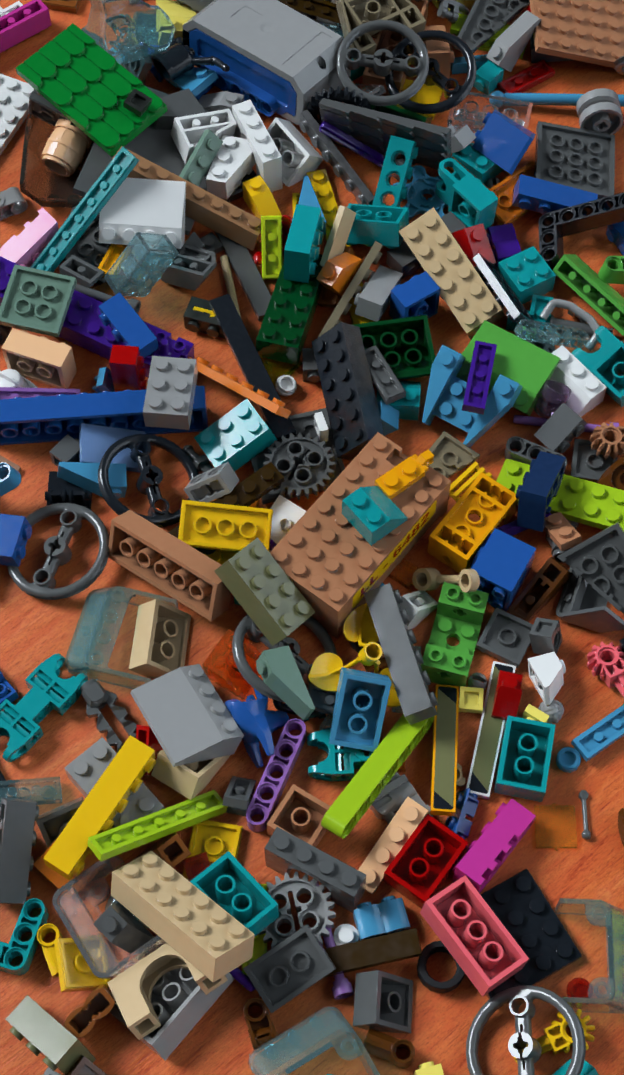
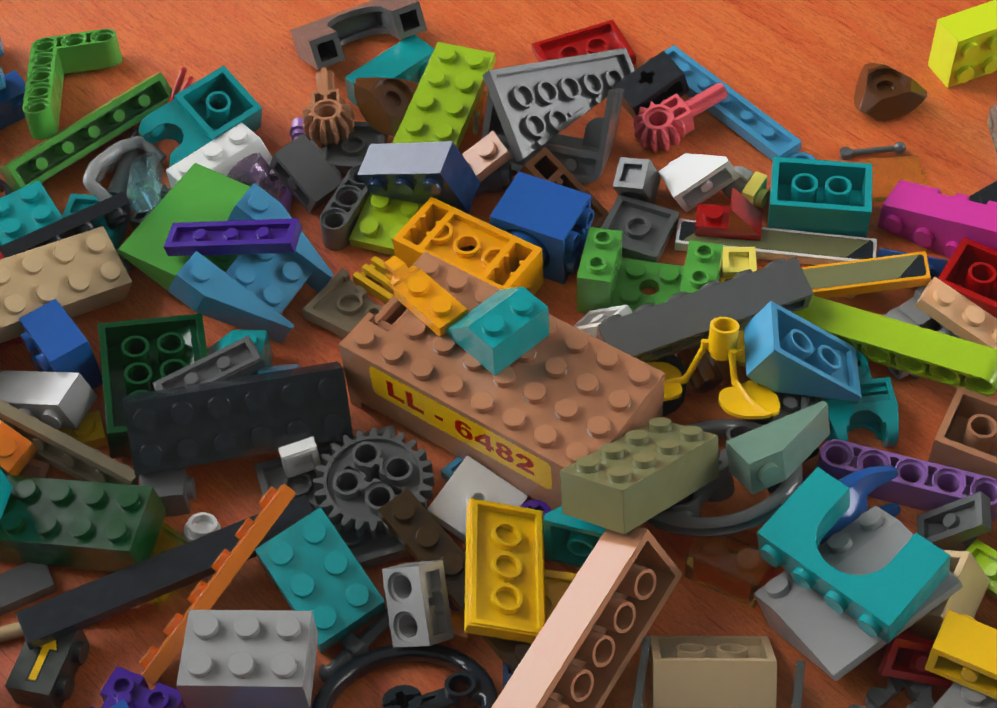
camera: 90 degrees left, 10 degrees down
(211, 675) = (877, 600): none -> teal arch
(430, 579) = (579, 238): tan piece -> none

